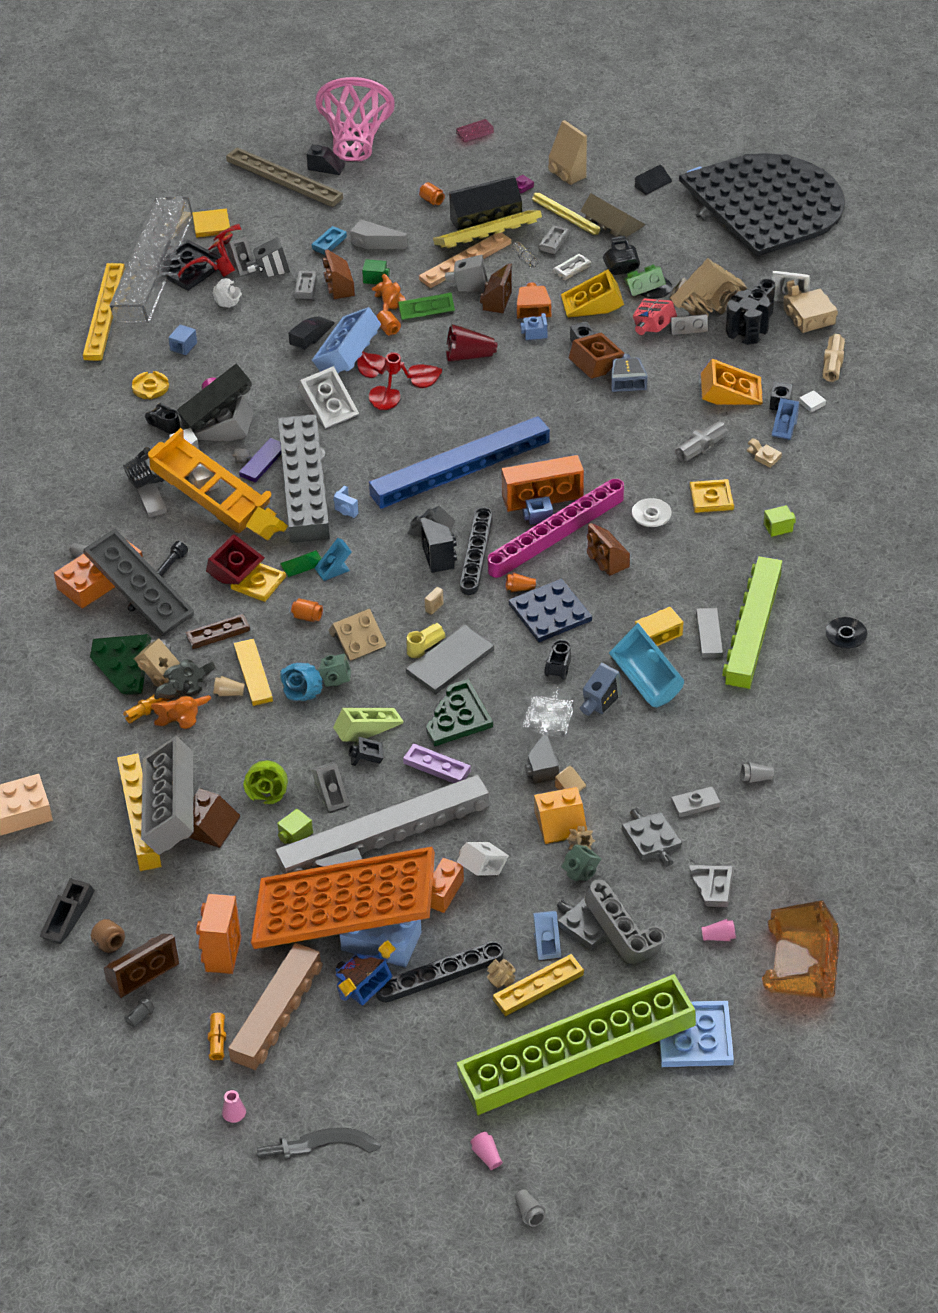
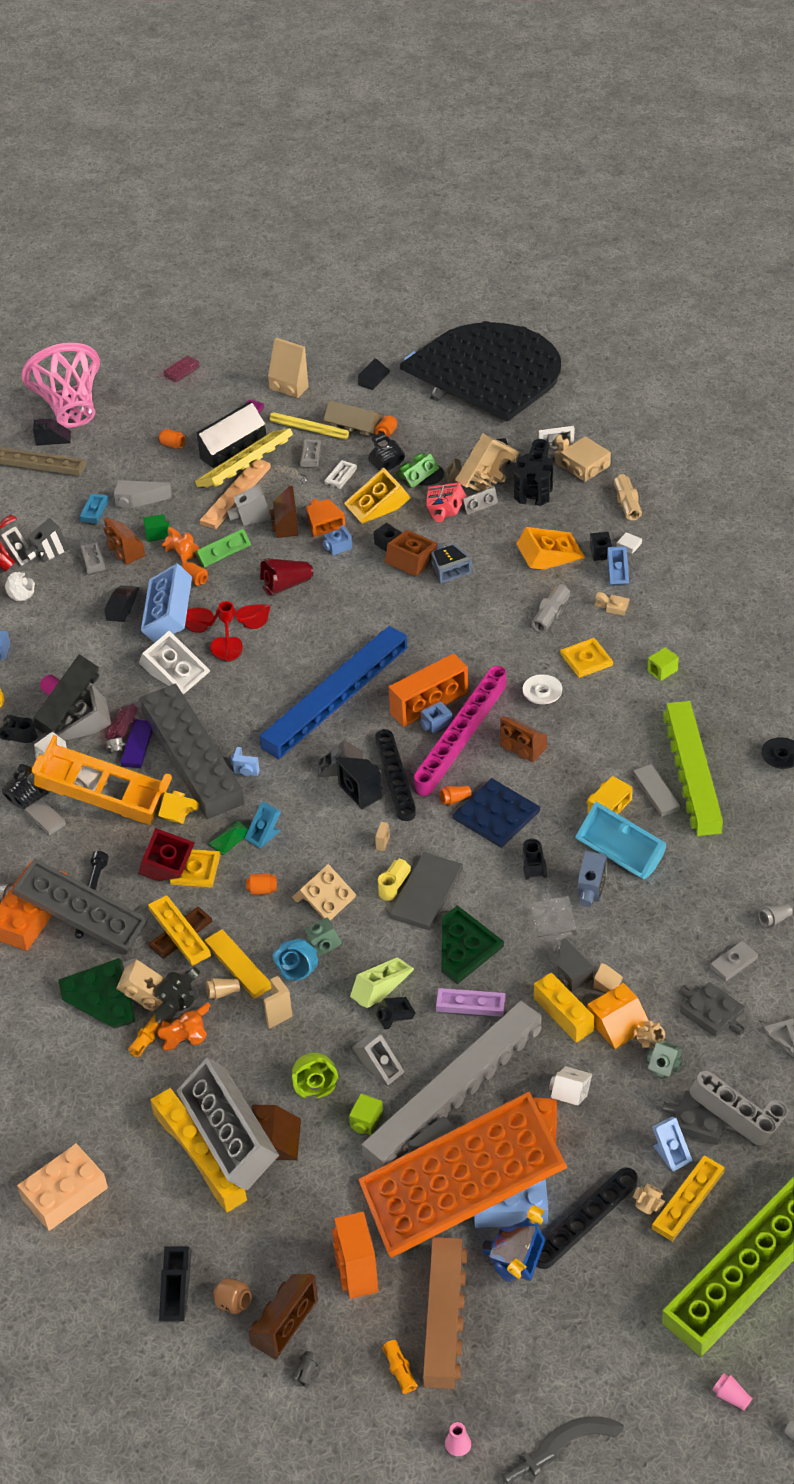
camera: 20 degrees left, 0 degrees up
(214, 628) = (179, 930): none -> yellow plate
(261, 434) = (121, 722): none -> clear pink plate
(263, 714) = (279, 1004): none -> tan panel
(515, 793) = (563, 1007): none -> yellow brick
(637, 232) = (387, 425): none -> orange brick

